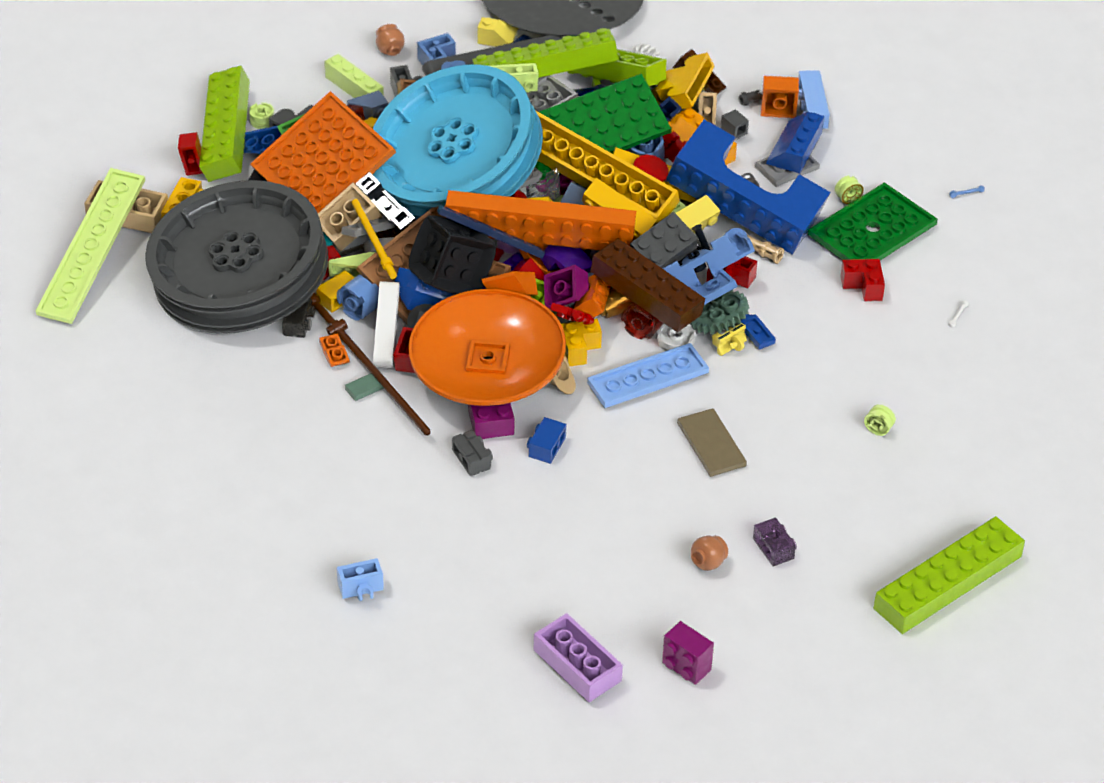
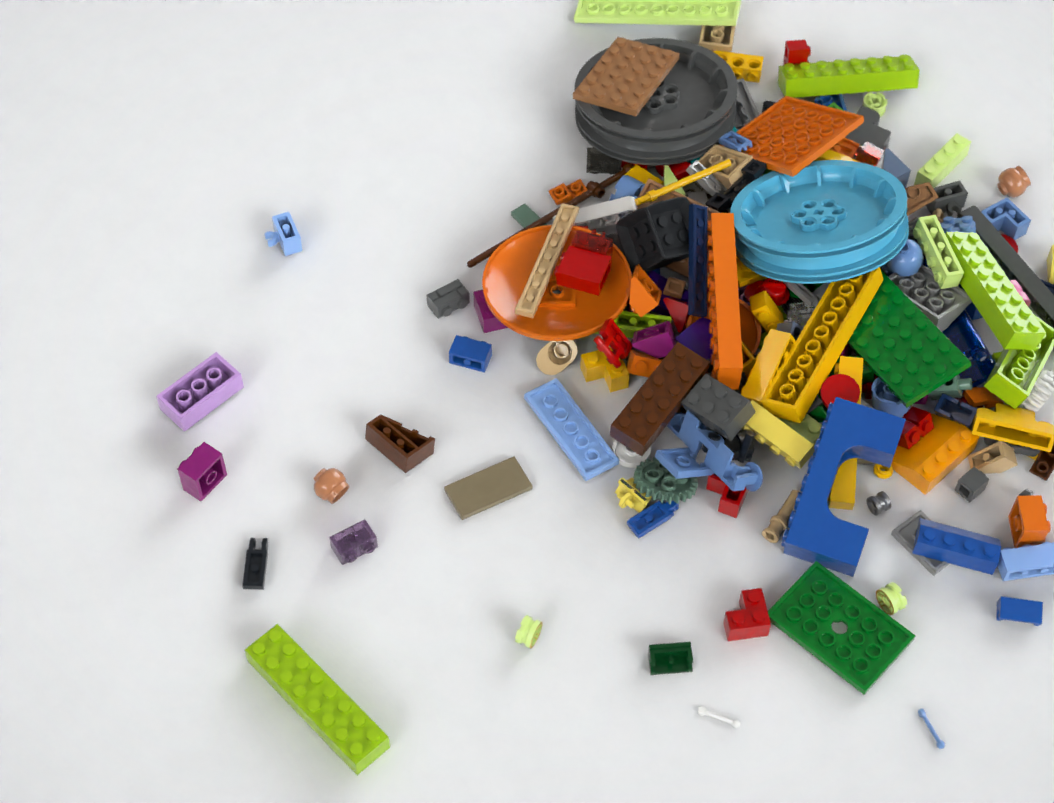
camera: 85 degrees right, 10 degrees up
(212, 262) = (626, 76): none -> medium nougat plate
(322, 202) = (732, 143): none -> medium blue tile
(457, 308) = (593, 242): none -> clear red brick
(461, 347) = (547, 260): none -> tan tile
(486, 317) = (583, 270): none -> red brick
(660, 498) = (398, 443): none -> reddish brown wedge
(794, 620) = (255, 565): none -> black hinge
(861, 121) = (1019, 610): none -> blue hinge
(903, 334) = (670, 658): none -> dark green hinge

